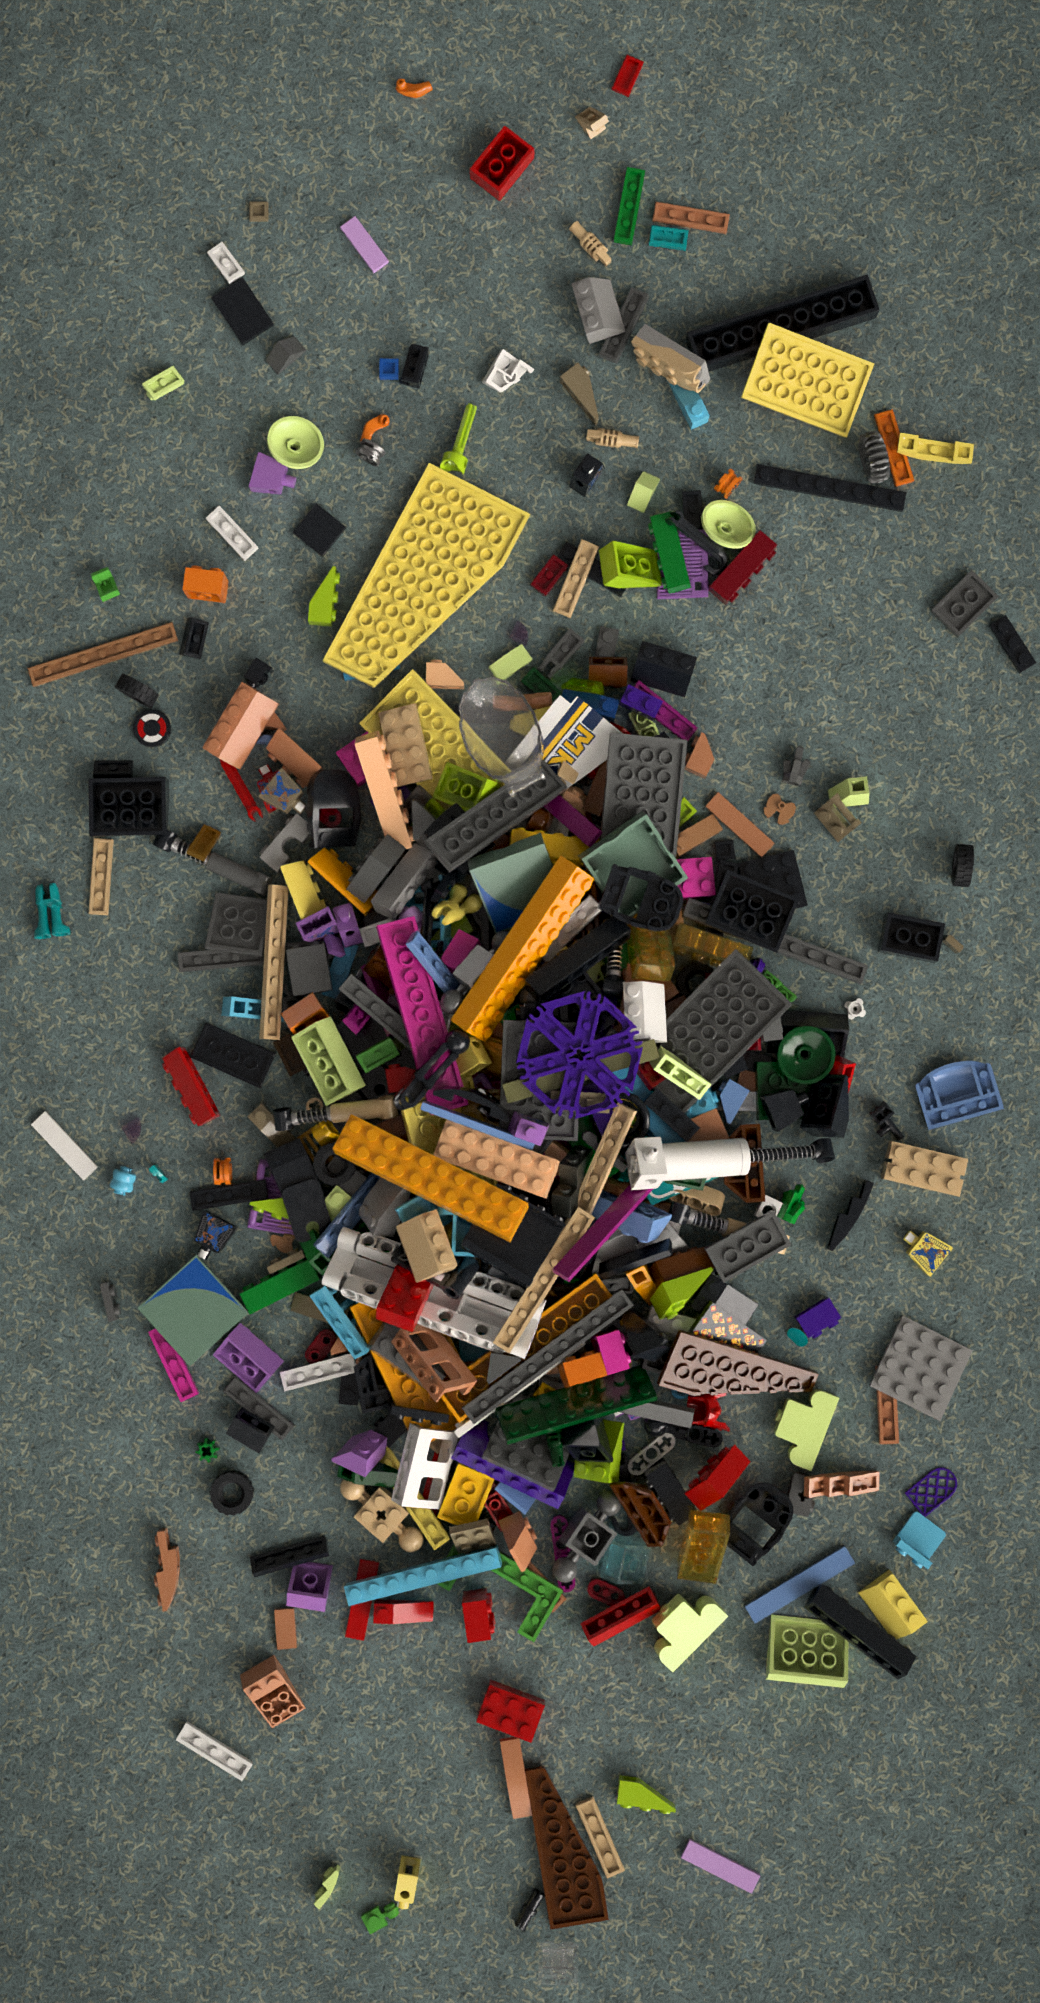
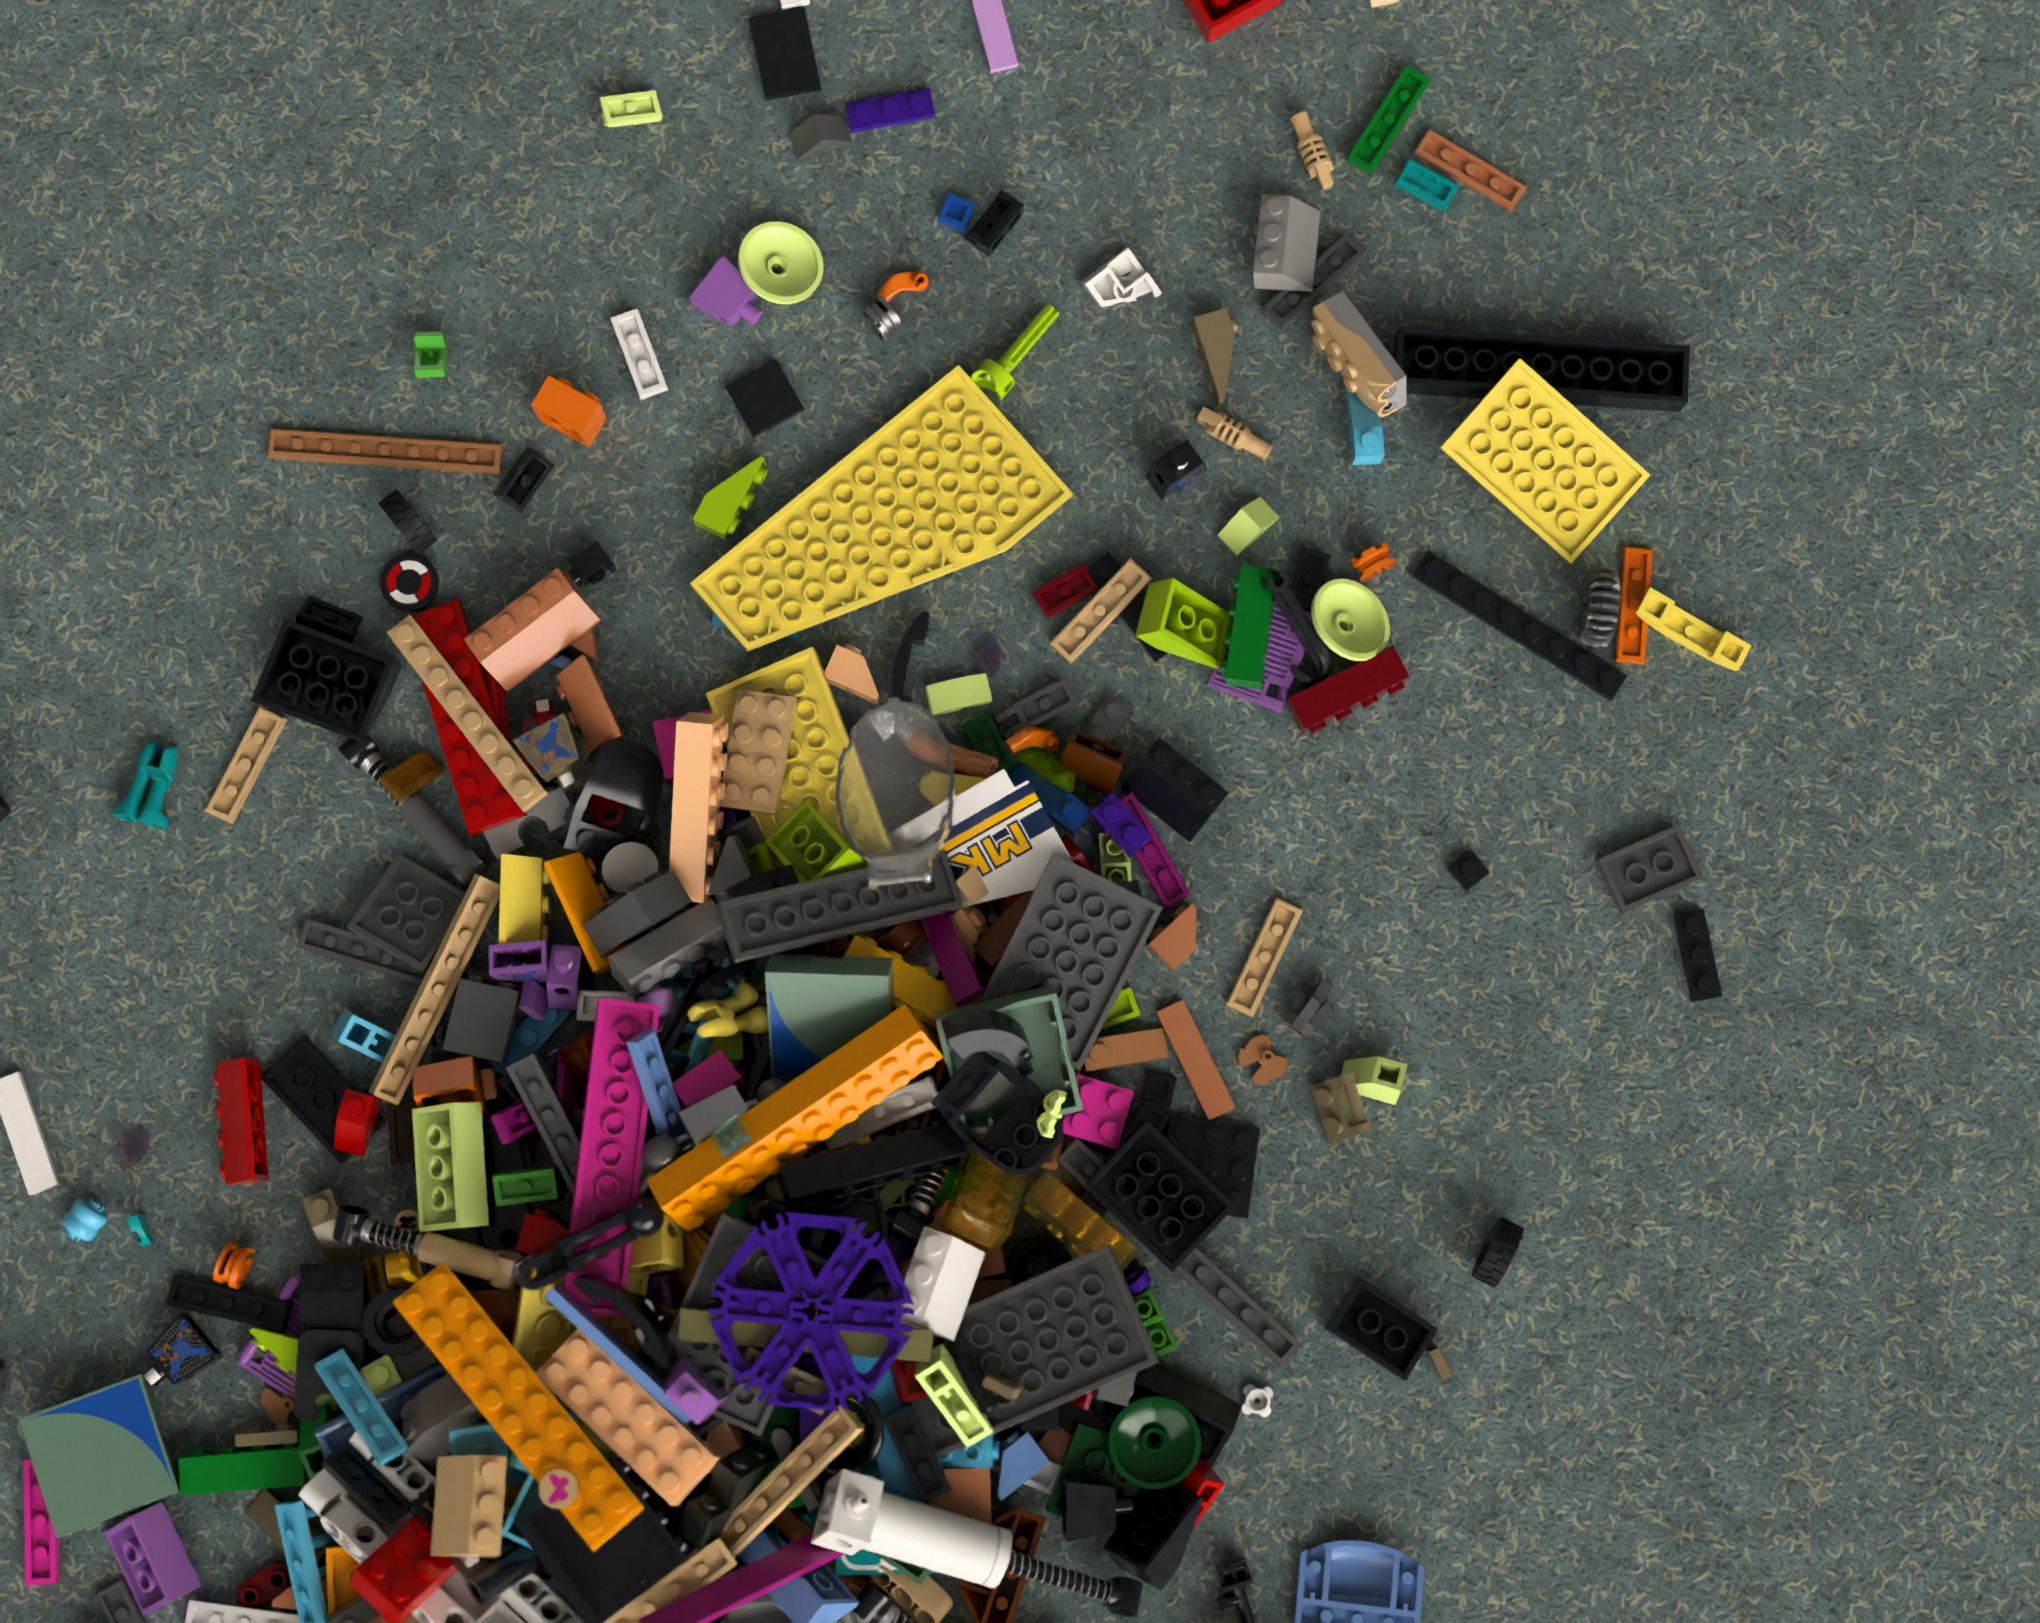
camera: 15 degrees right, 5 degrees down
(221, 795) = (478, 790): none -> red plate
(222, 791) = (467, 713): none -> tan plate
(259, 1059) = (355, 1122): none -> red slope
(322, 321) = (890, 110): none -> dark purple plate
(329, 1006) = (490, 1084): none -> nougat tile
(336, 1219) = (361, 1407): none -> medium azure plate
(356, 845) = (628, 865): none -> white sticker
(359, 1261) = (366, 1485): none -> black plate
(471, 638) = (915, 635): none -> black slope
(476, 1213) = (558, 1488): none -> tan sticker
(489, 973) = (729, 1135): none -> clear light blue tile
(565, 671) = (1033, 736): none -> orange arm
(615, 852) = (989, 1031): none -> black arch
(670, 880) = (1048, 1119): none -> yellowish green piece
(691, 1061) = (974, 1380): none -> black axle
(706, 1055) = (1002, 1386): none -> dark tan tile
(756, 748) = (1264, 957): none -> tan tile
(857, 647) = (1468, 870): none -> black plate

